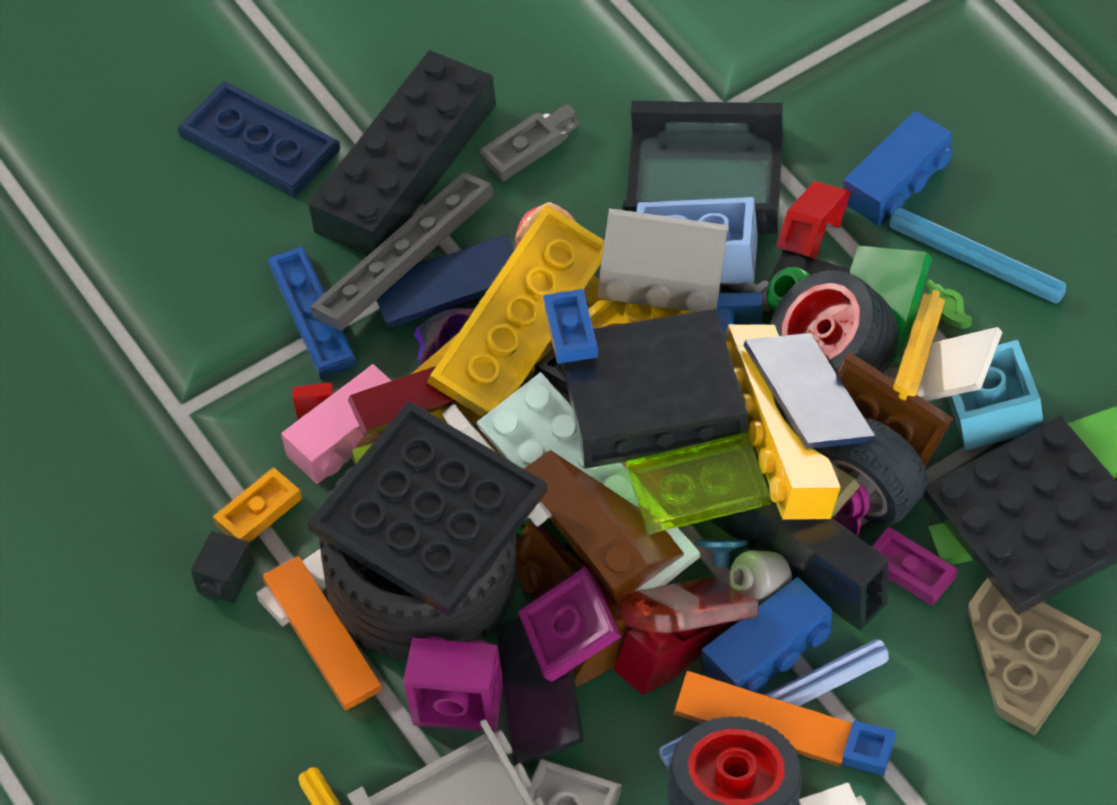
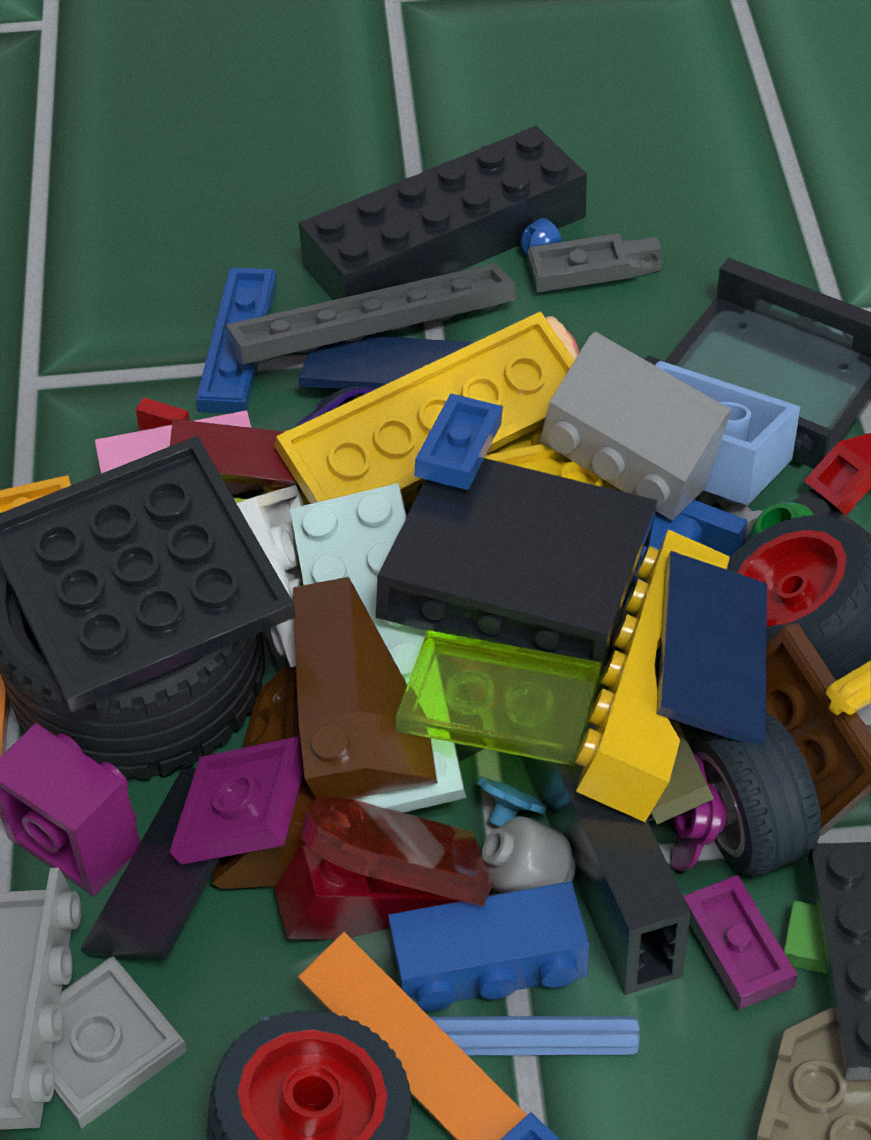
camera: 25 degrees right, 5 degrees down
(259, 138) = (310, 152): dark blue tile -> none
(479, 136) = (539, 233): none -> blue hinge

